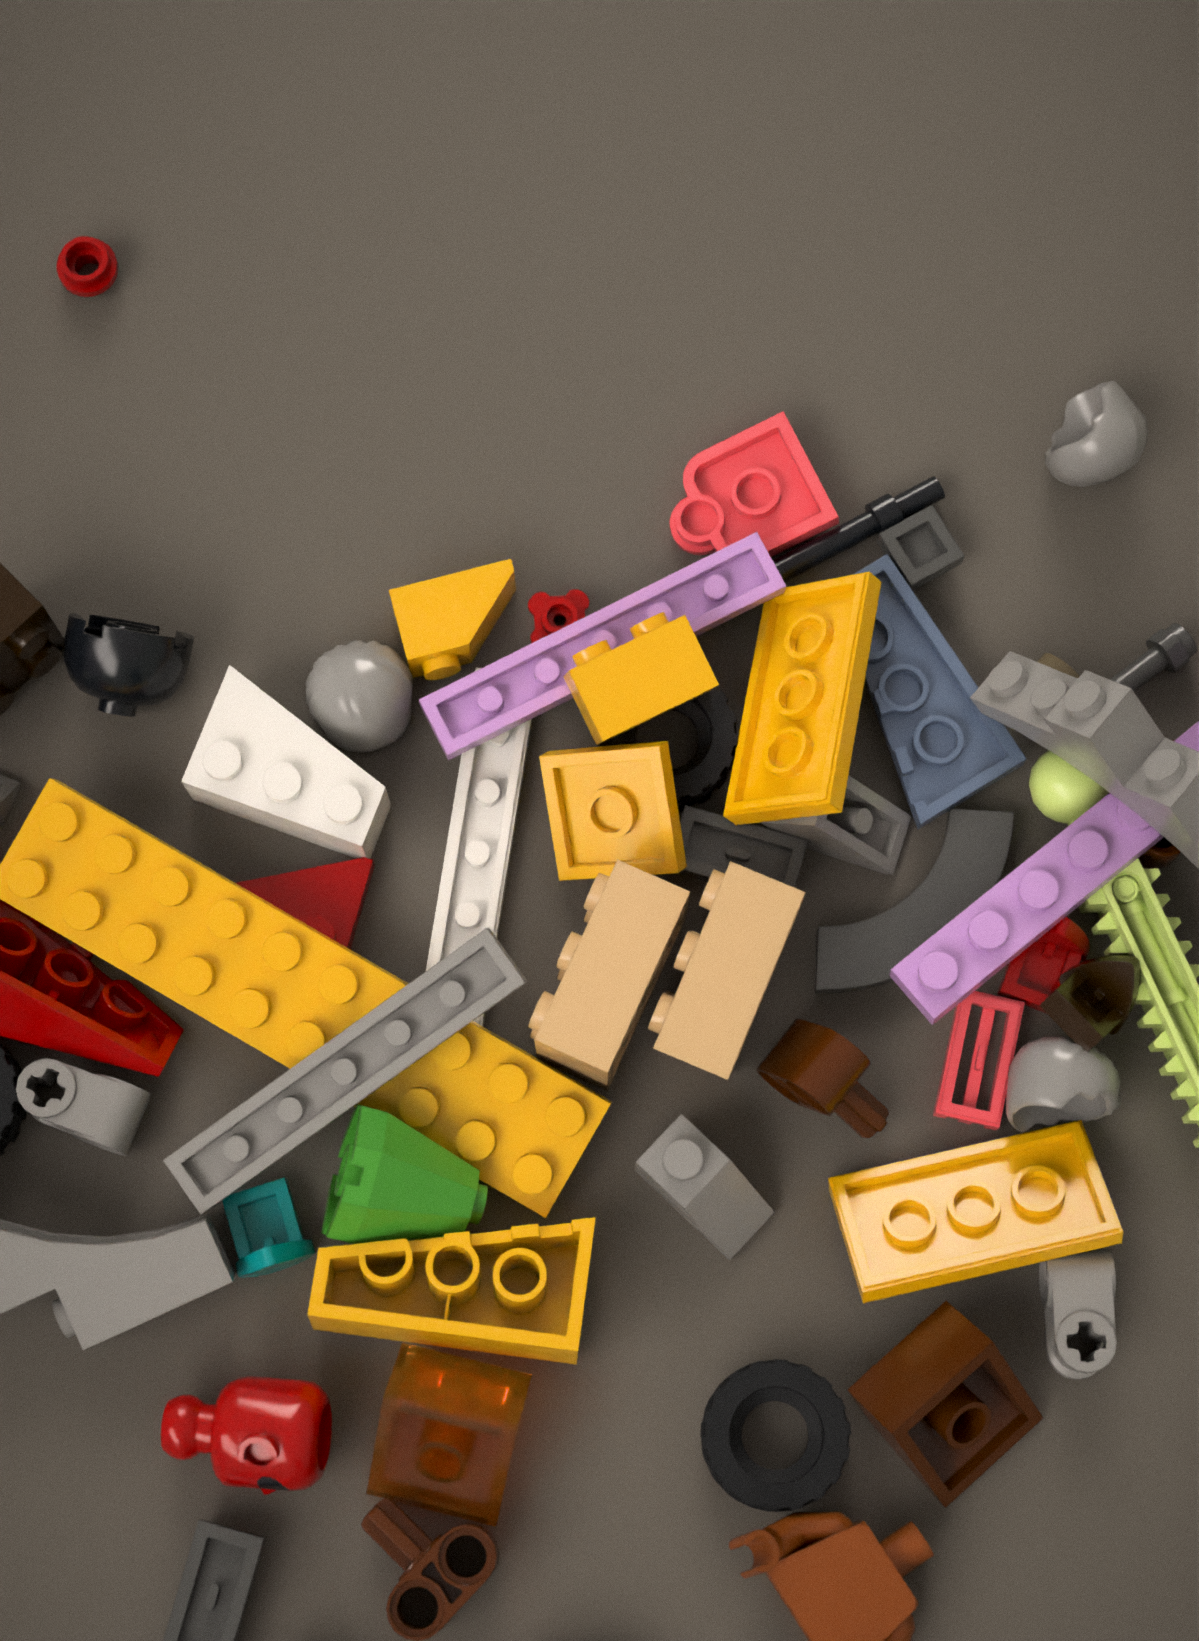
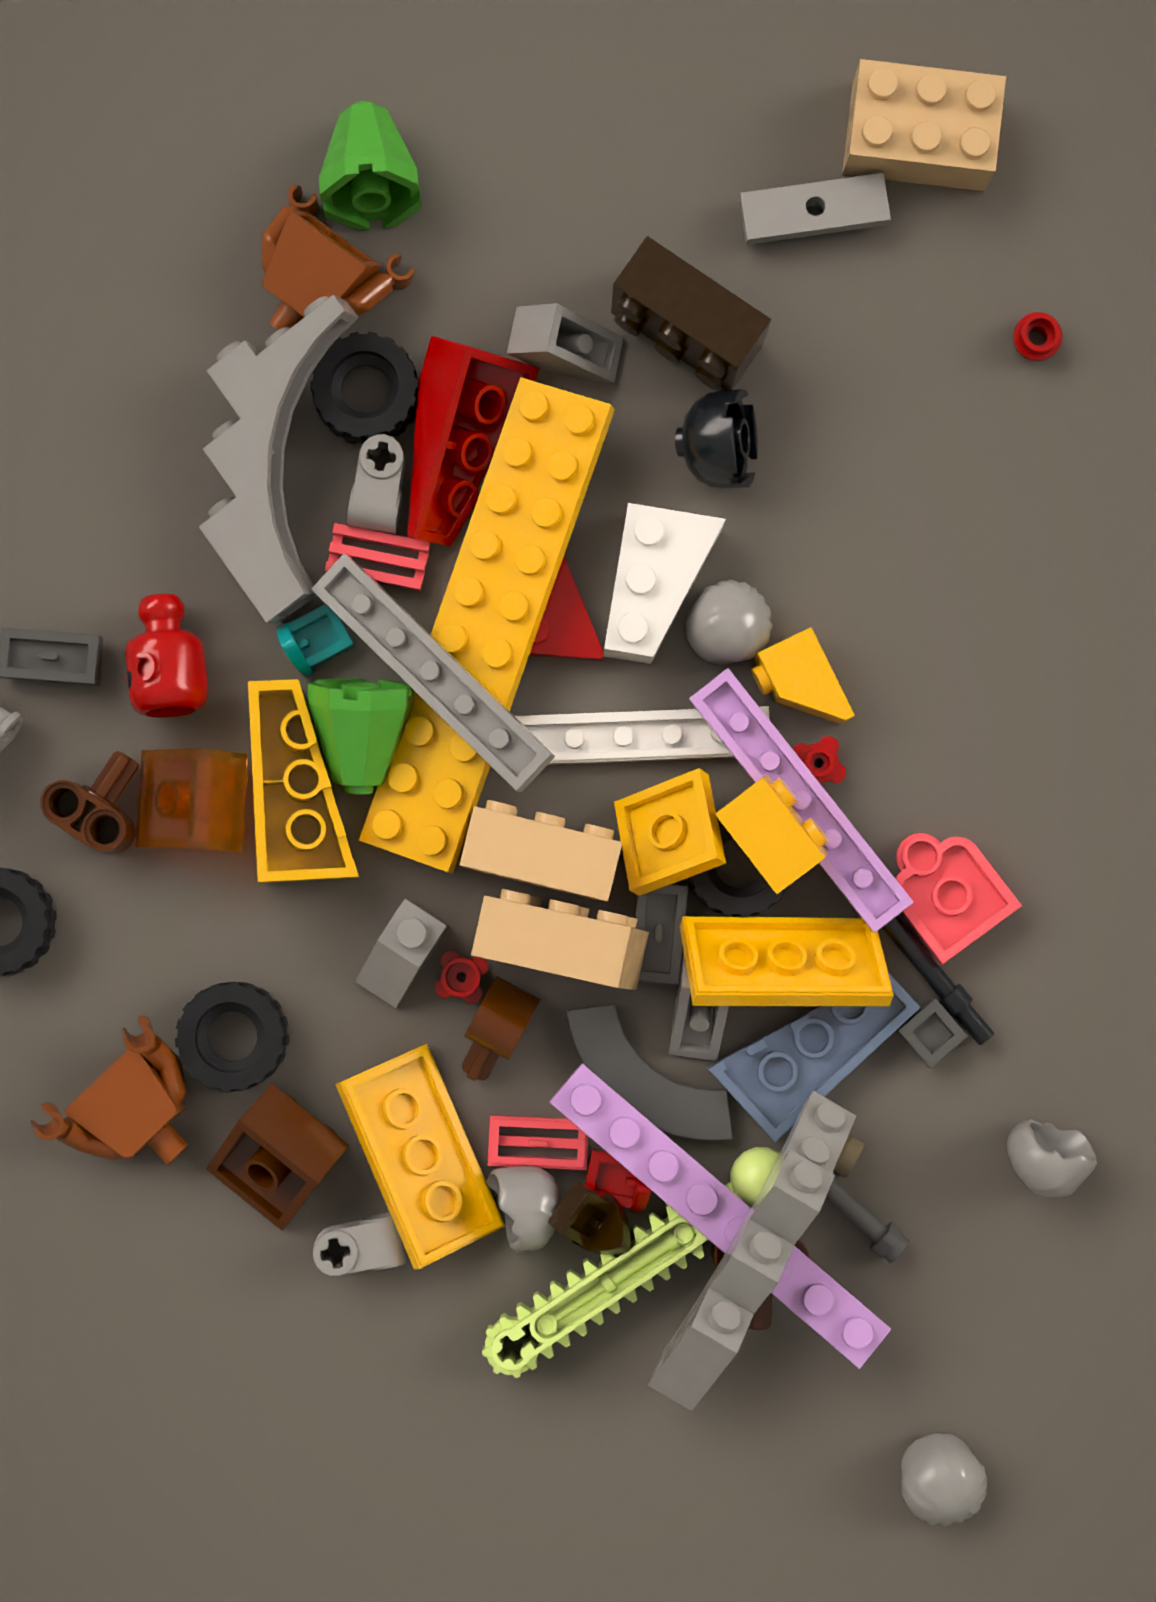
camera: 75 degrees right, 10 degrees up
(154, 1114) = (419, 565): none -> coral tile
(766, 1111) = (450, 986): none -> red plate

